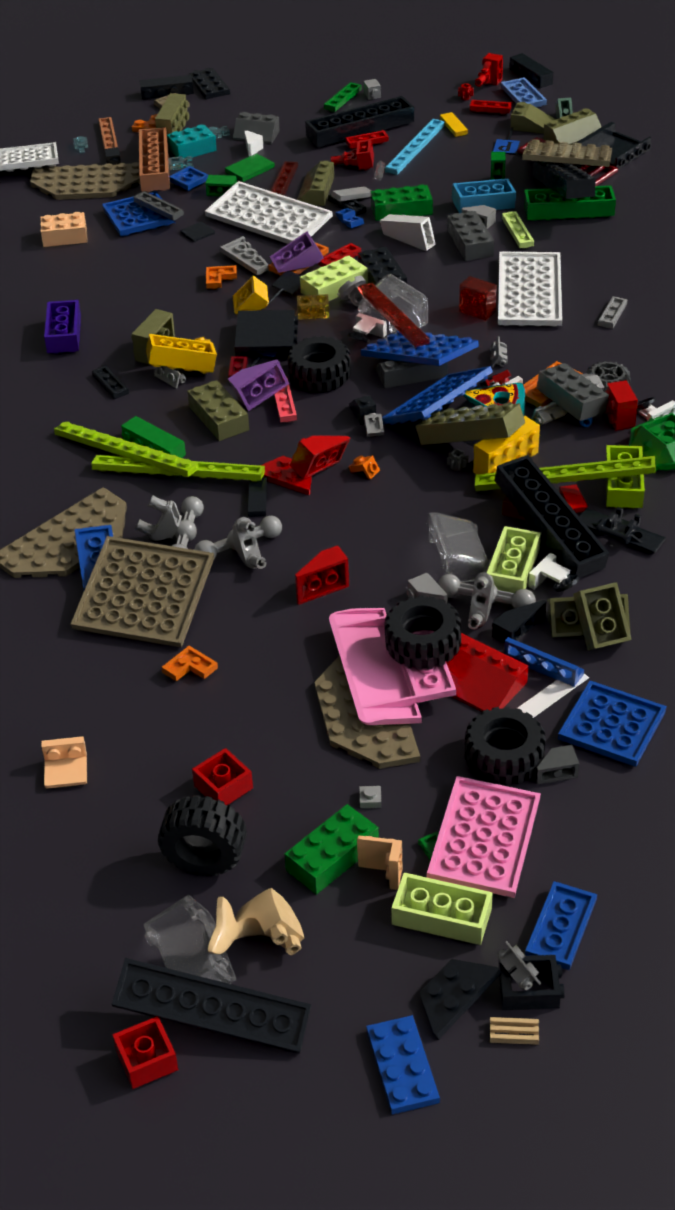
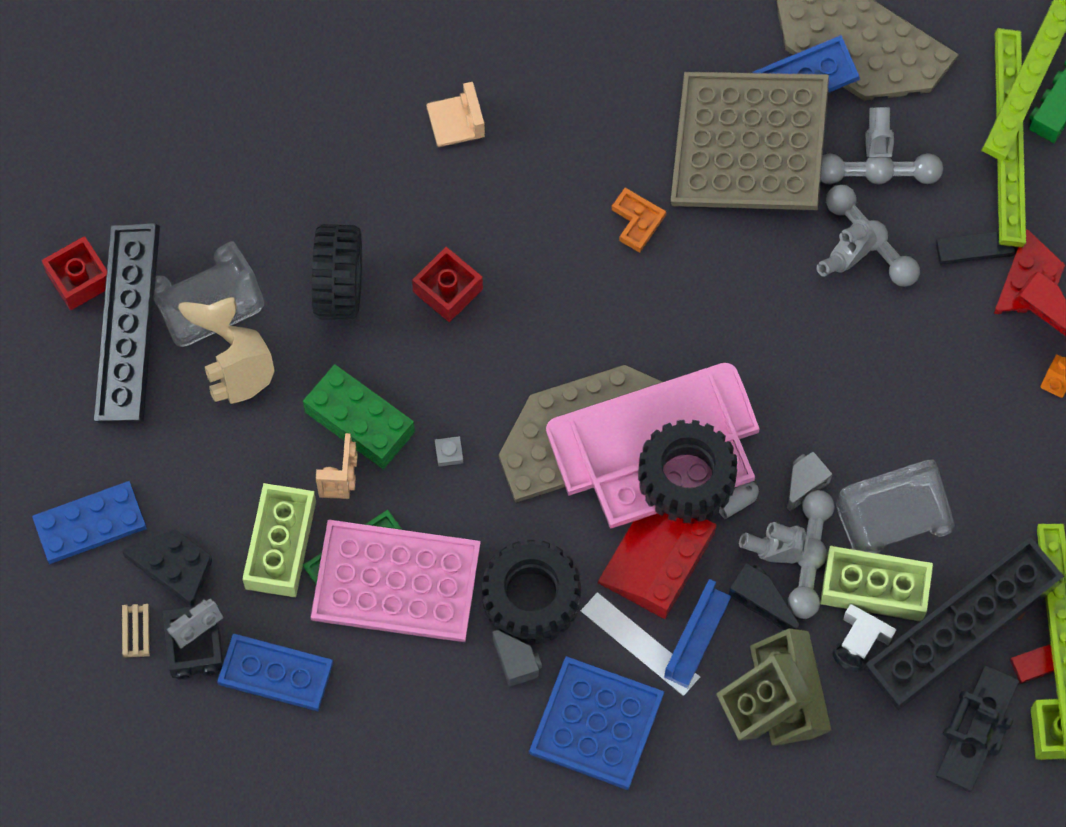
camera: 80 degrees right, 25 degrees up
(322, 575) = (809, 345): red slope -> none

